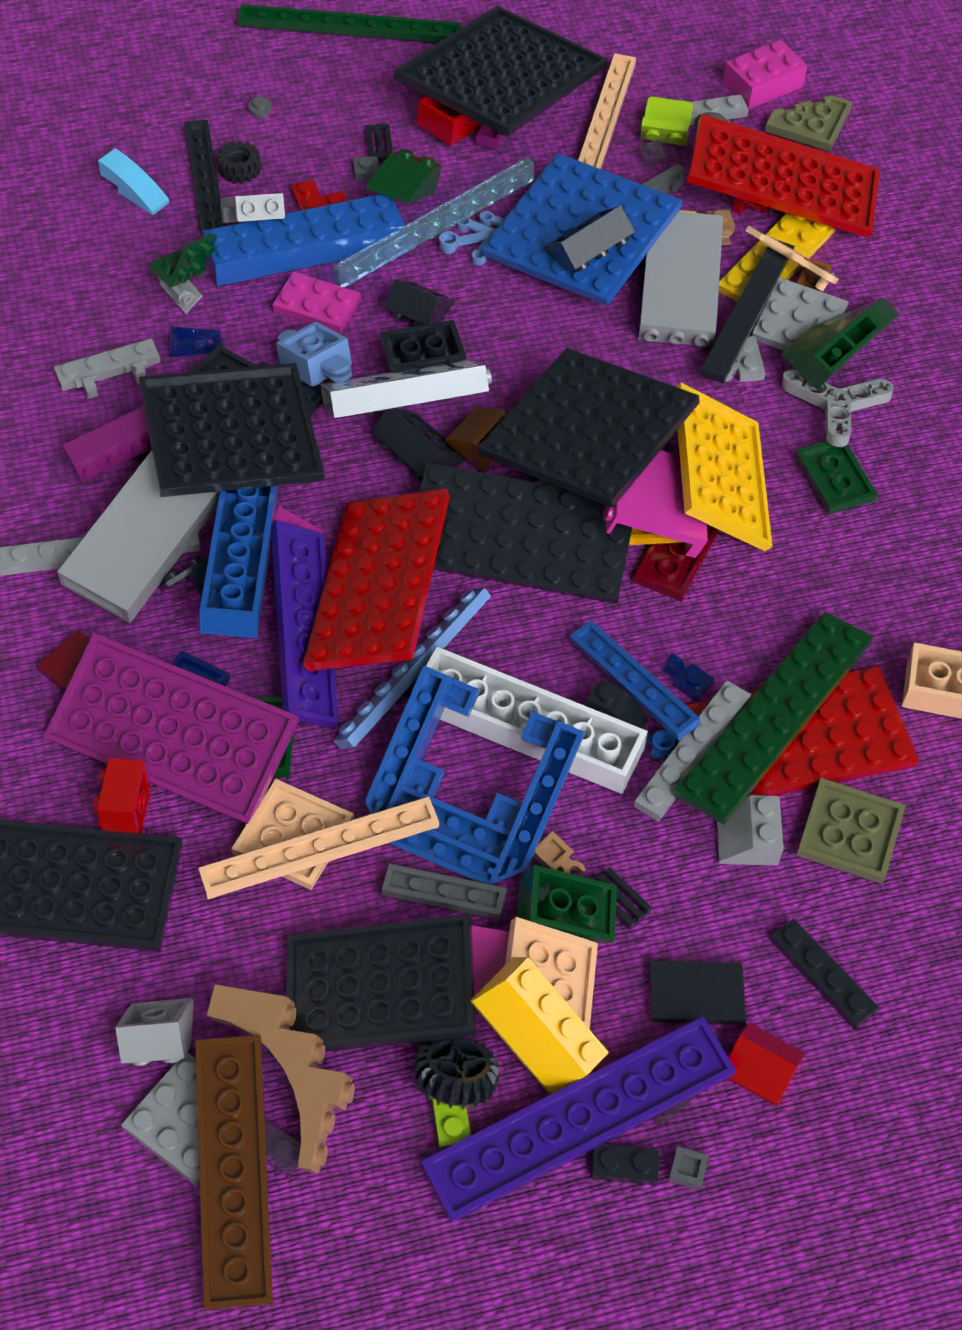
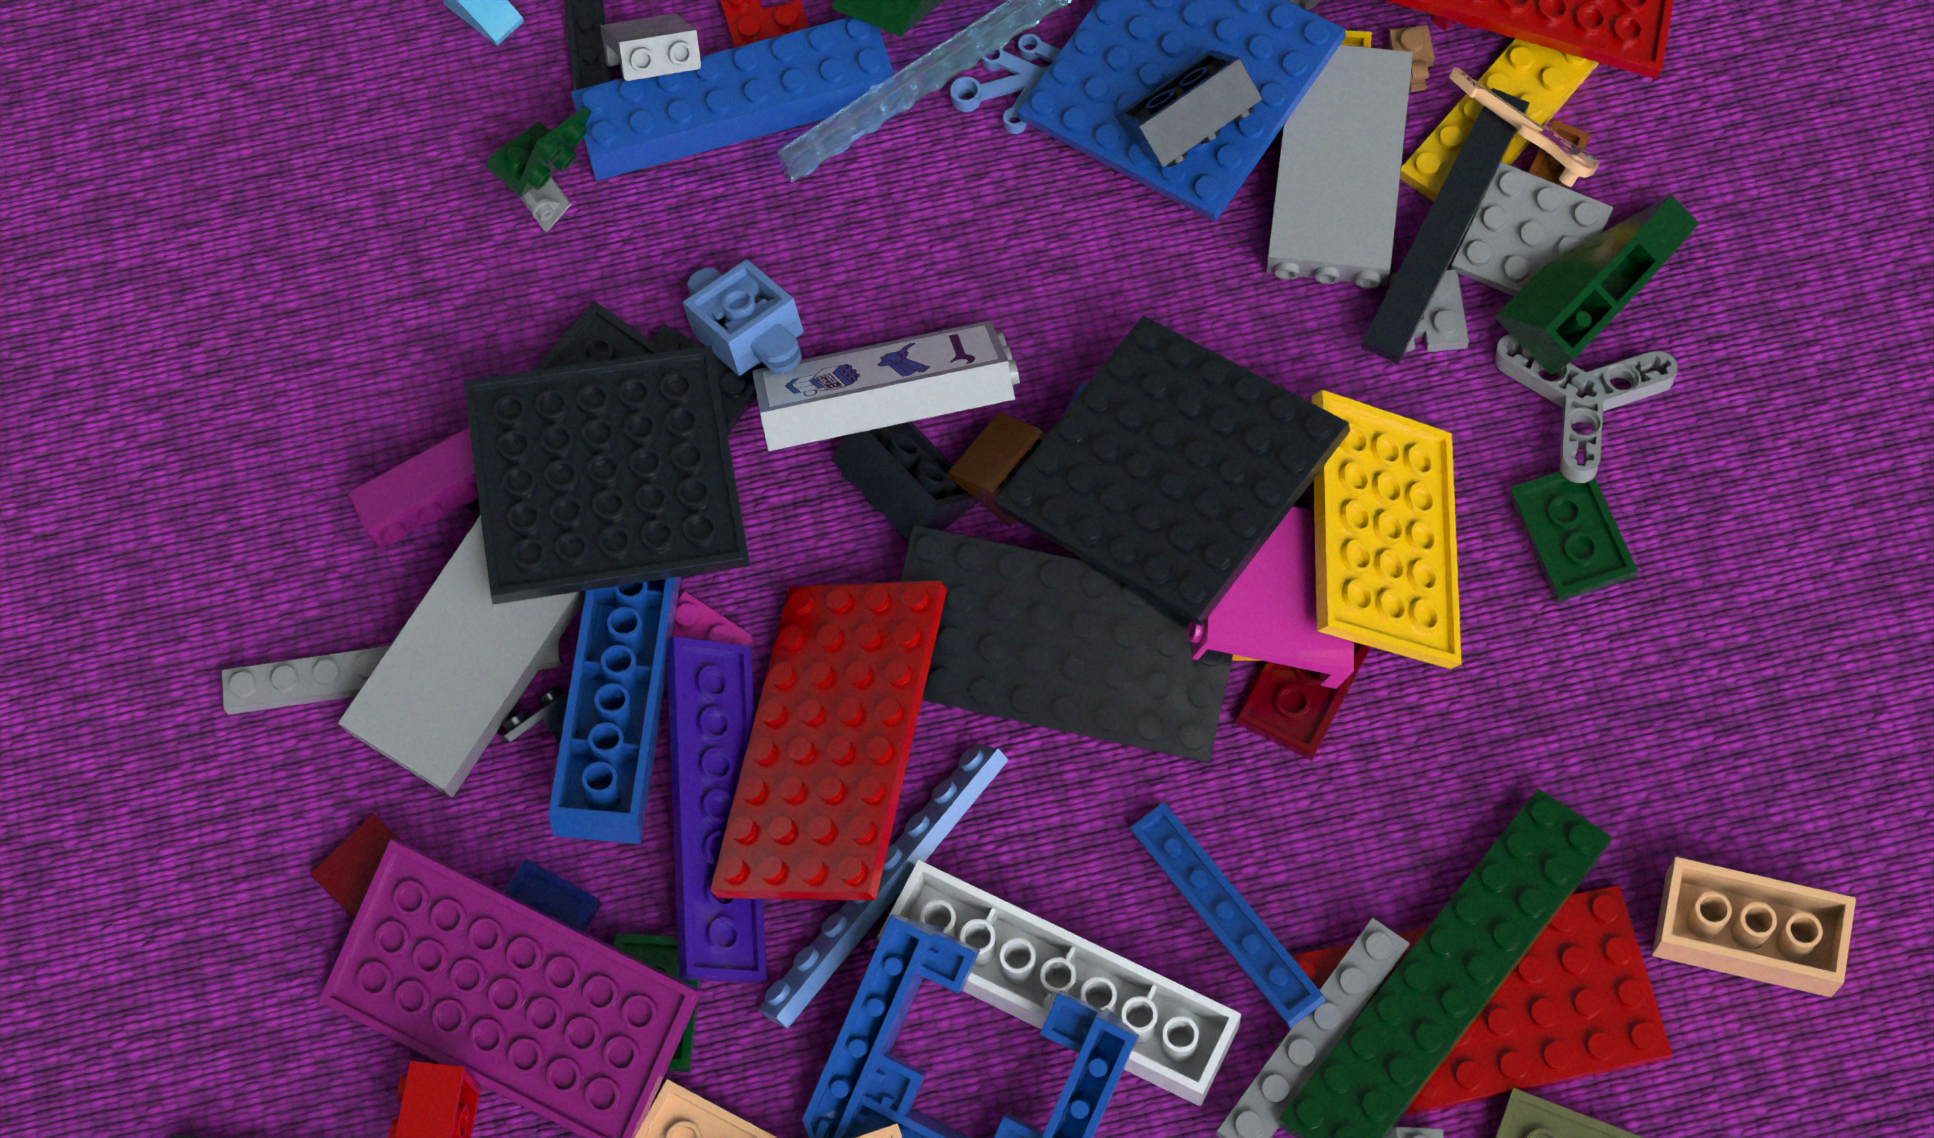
camera: 10 degrees right, 10 degrees up
(108, 364) = (400, 337): light grey hinge -> none
(185, 341) = (546, 300): clear blue slope -> none
(316, 301) = (752, 209): dark pink plate -> none
(417, 303) = (914, 213): black slope -> none
(421, 346) = (914, 305): black slope -> none
(616, 703) = (1196, 963): black slope -> none
(658, 738) = (1261, 1033): blue plate -> none
(690, 679) = (1318, 906): clear blue plate -> none

